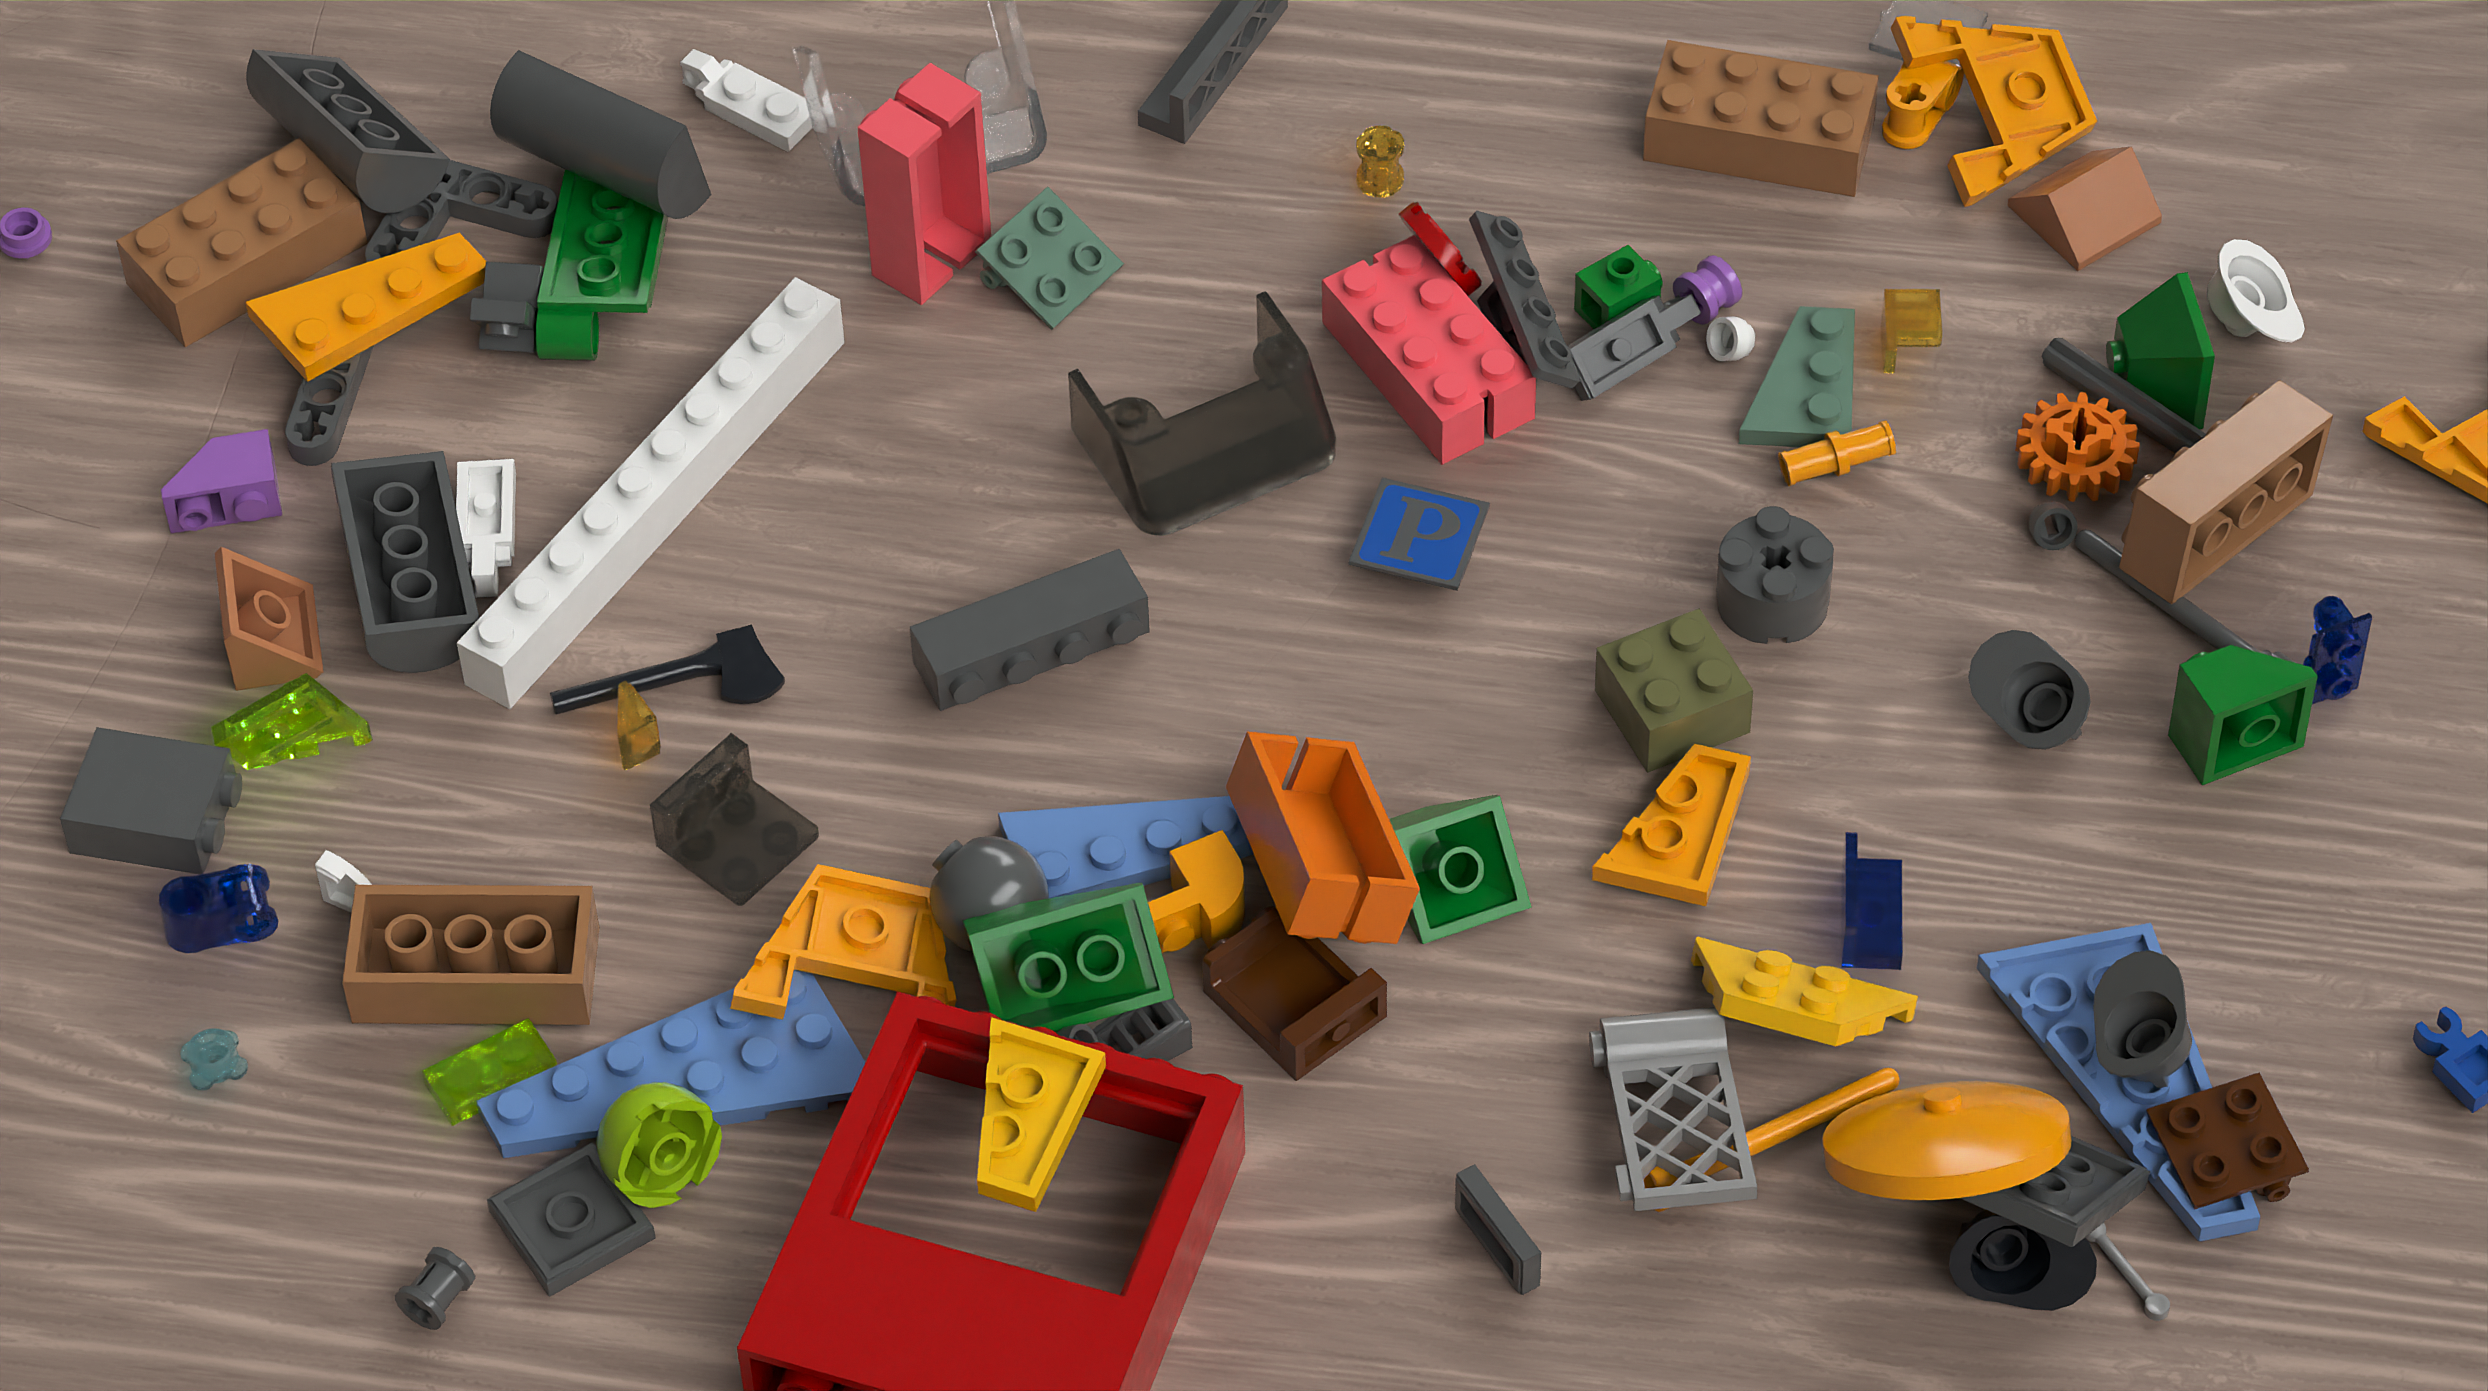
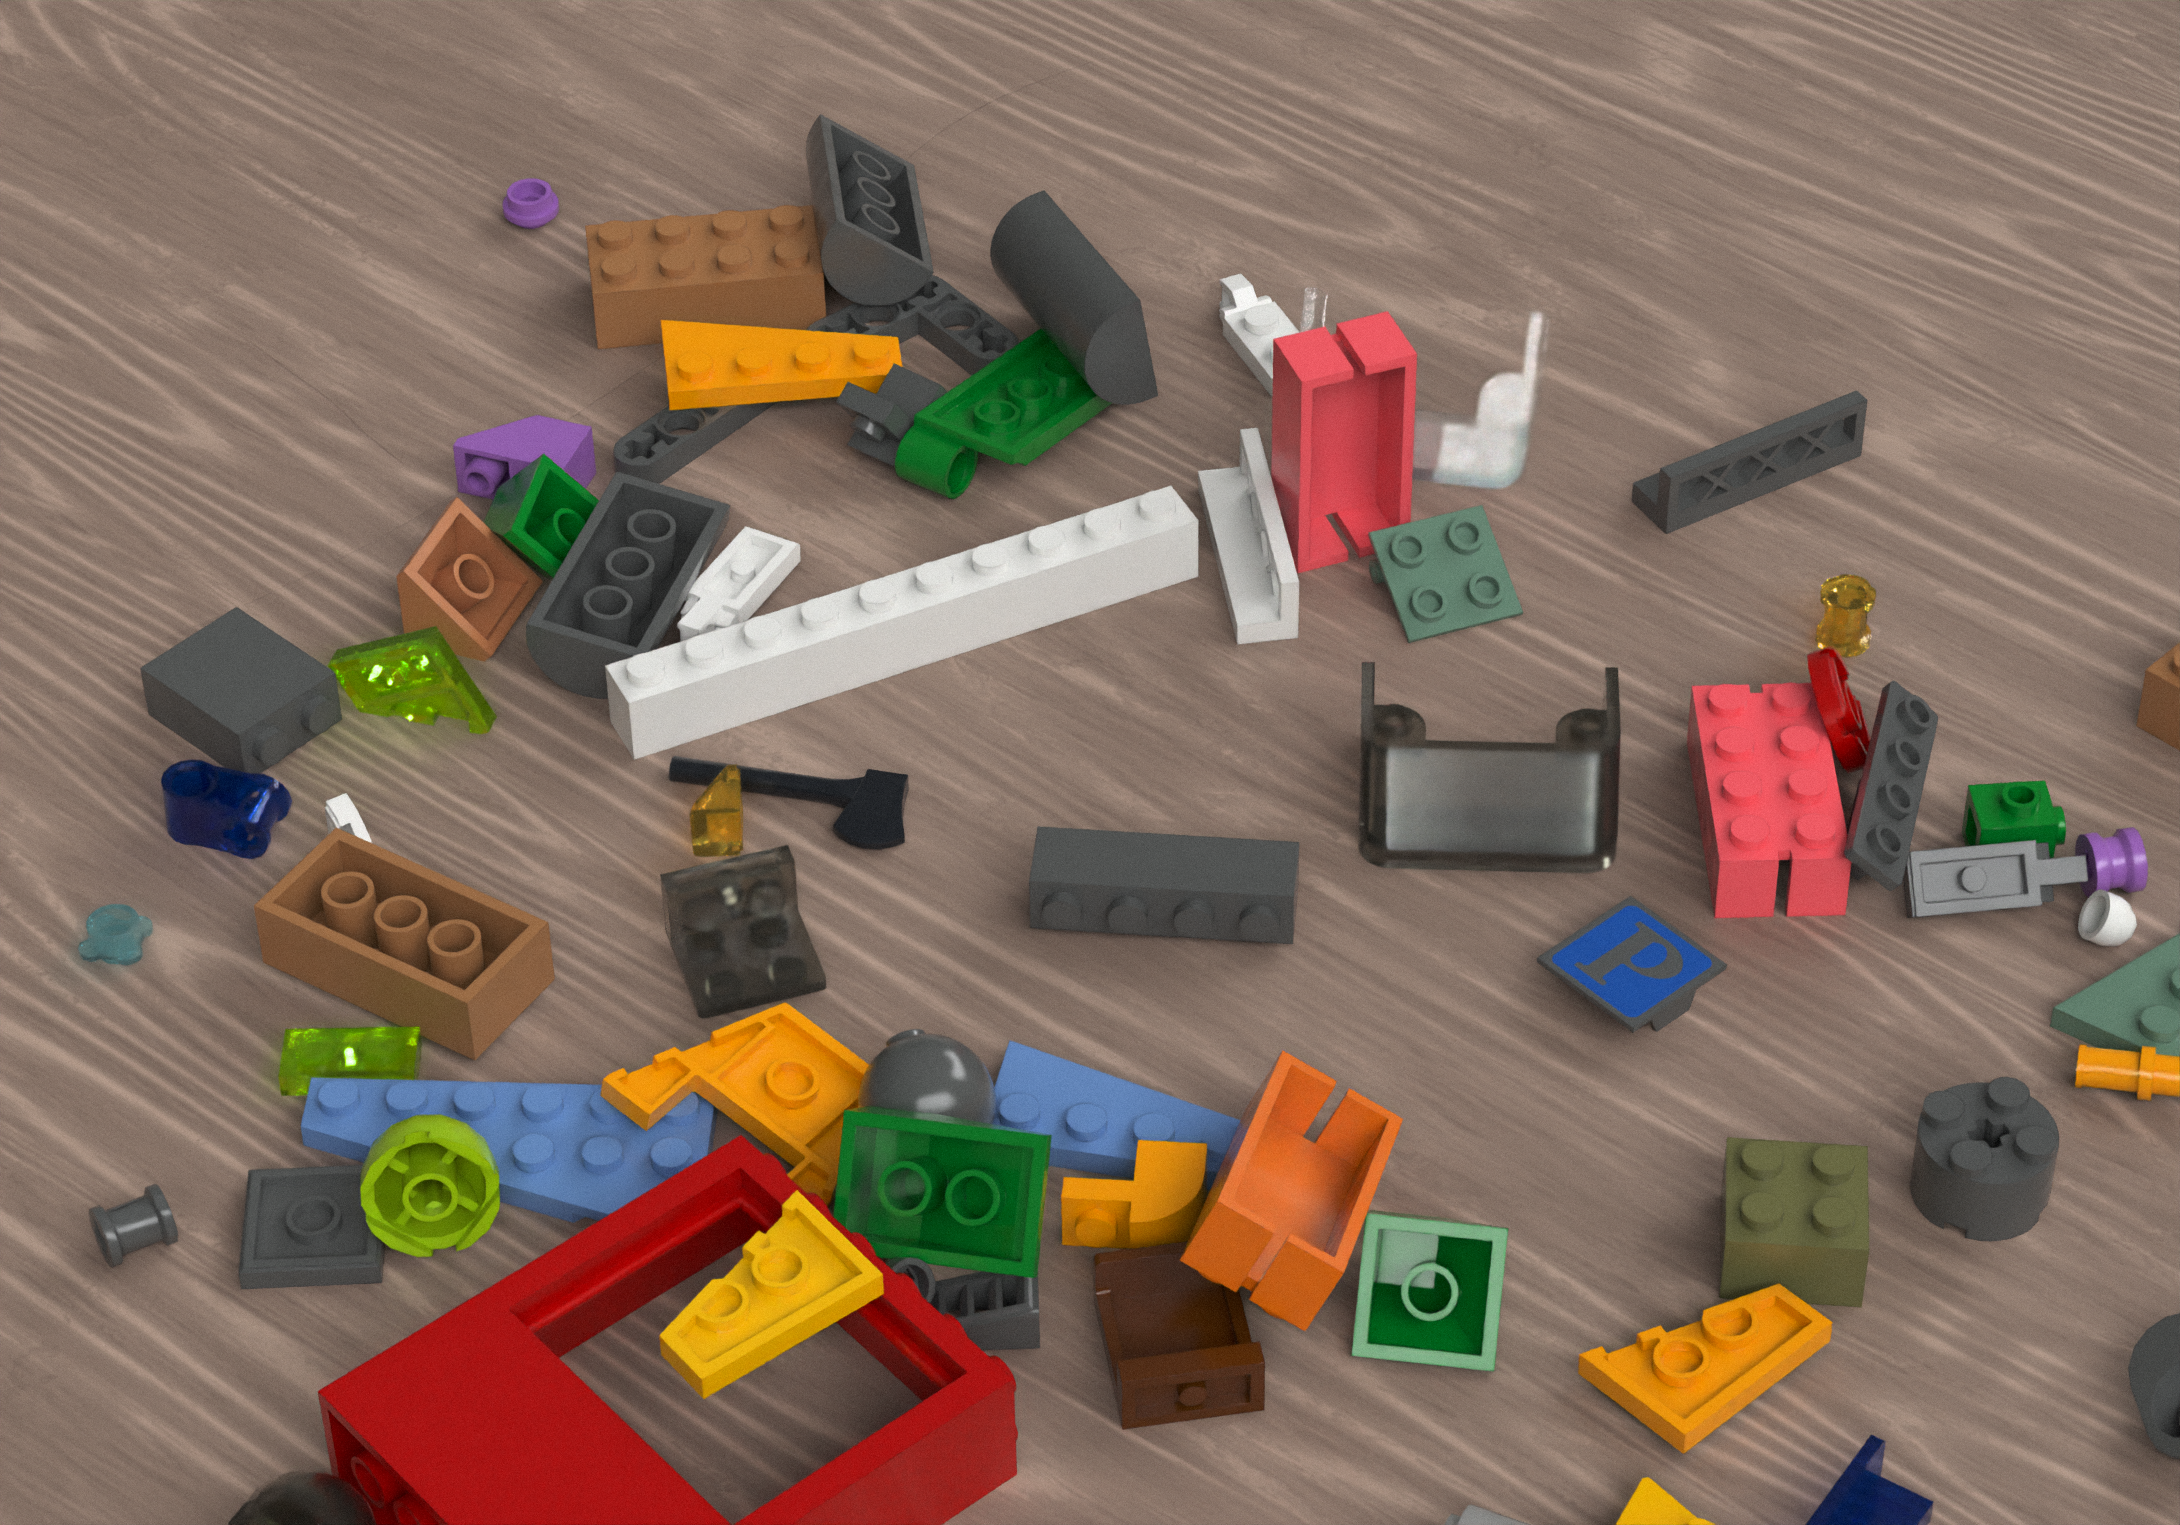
camera: 30 degrees right, 10 degrees down
(291, 531) = (540, 514): none -> green slope
(878, 296) = (1251, 546): none -> white fence

